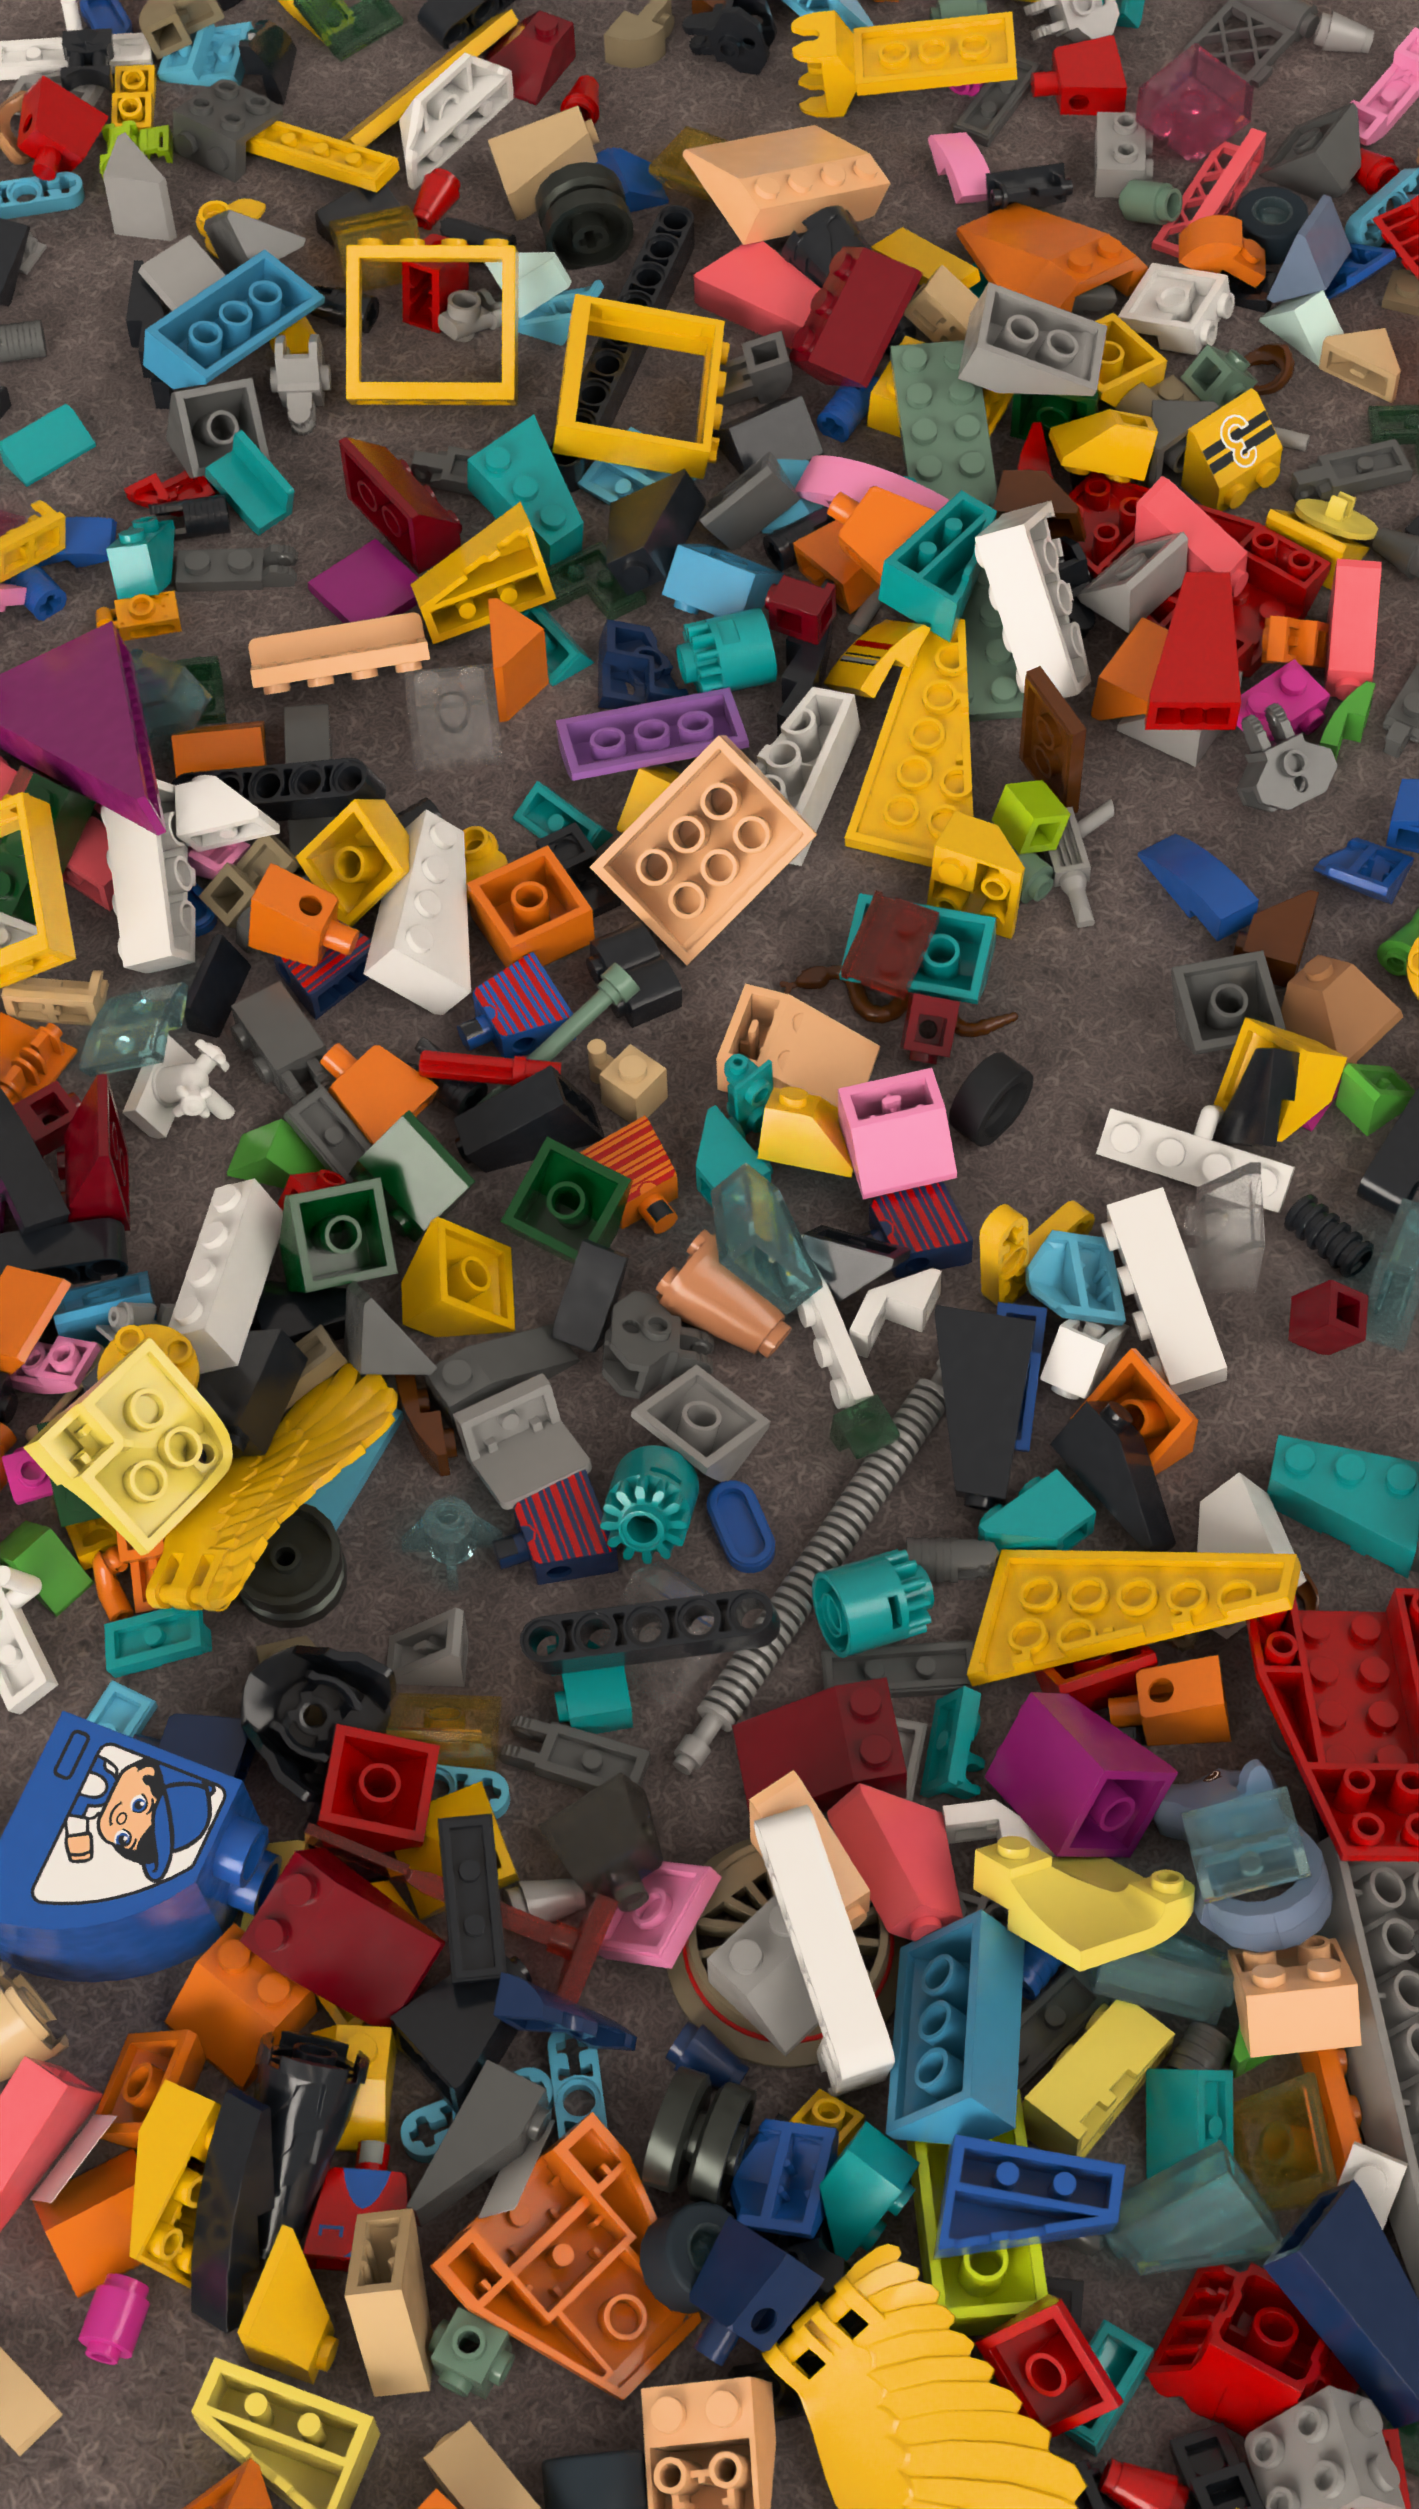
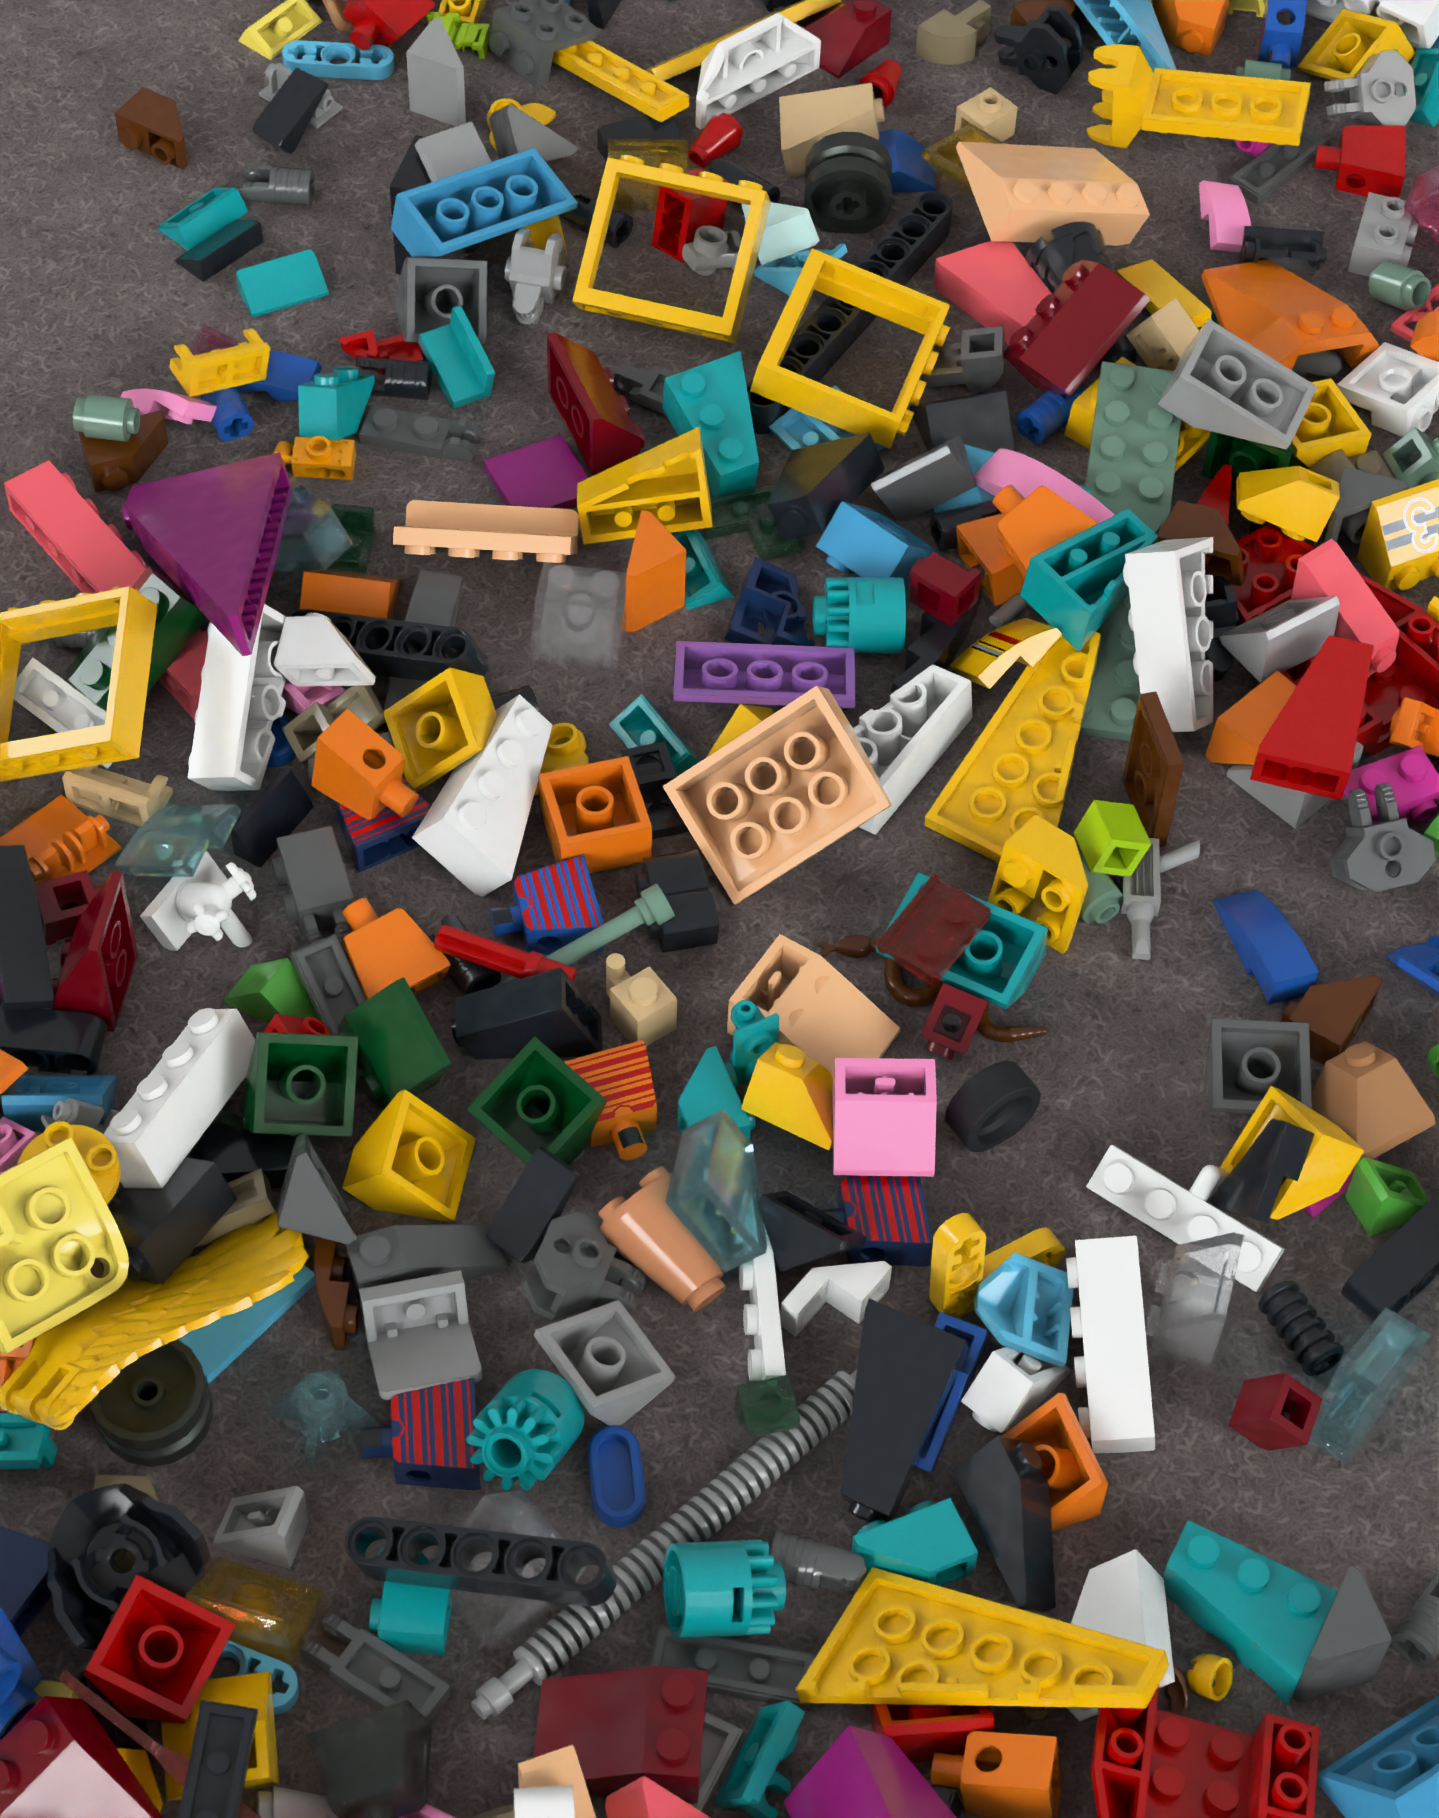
camera: 10 degrees right, 5 degrees down
(699, 110) = (989, 113): none -> tan brick
(1328, 1565) = (1206, 1670): none -> yellow hinge

